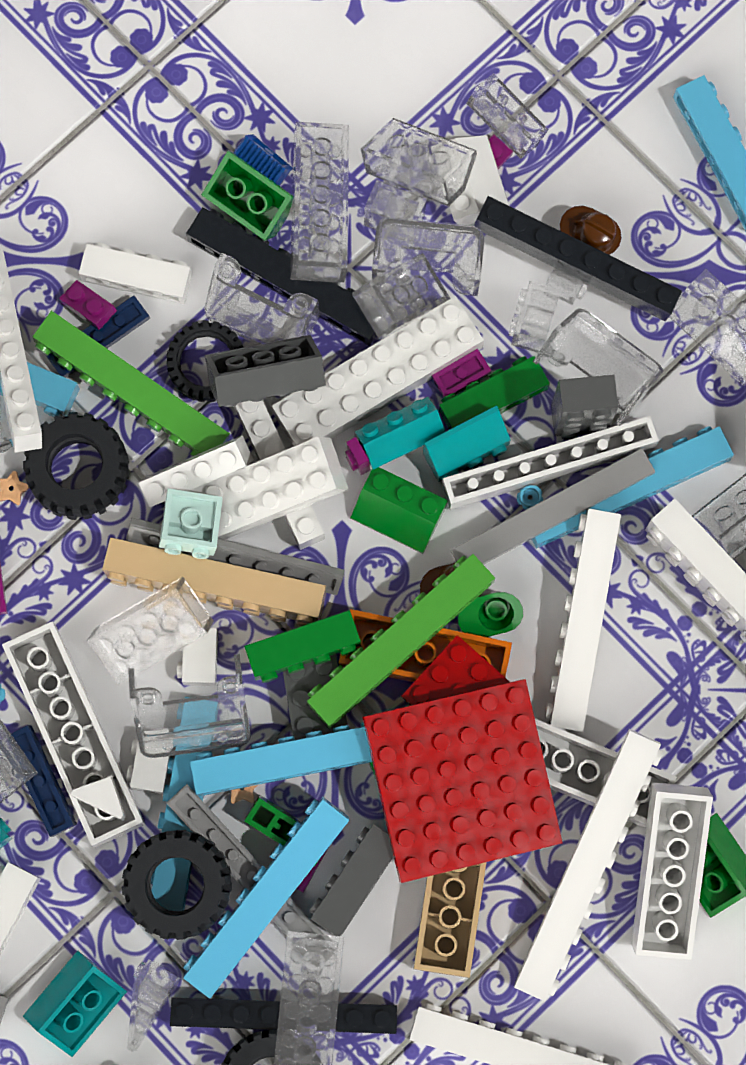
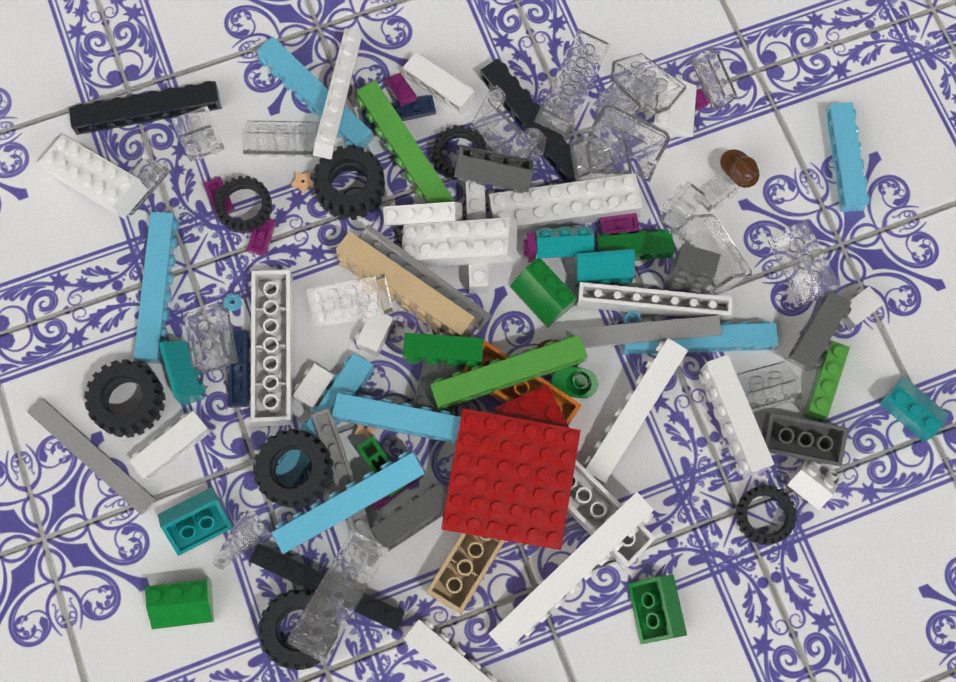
camera: 20 degrees right, 5 degrees down
(102, 796) = (271, 391): white slope -> none
(190, 523) = (404, 241): light aqua plate -> none
(191, 723) = (350, 370): clear windscreen -> none
(248, 196) = (530, 62): green slope -> none
(263, 159) = (545, 48): blue brick -> none
(577, 259) = (724, 180): black brick -> none
(671, 871) = (627, 599): white brick -> none

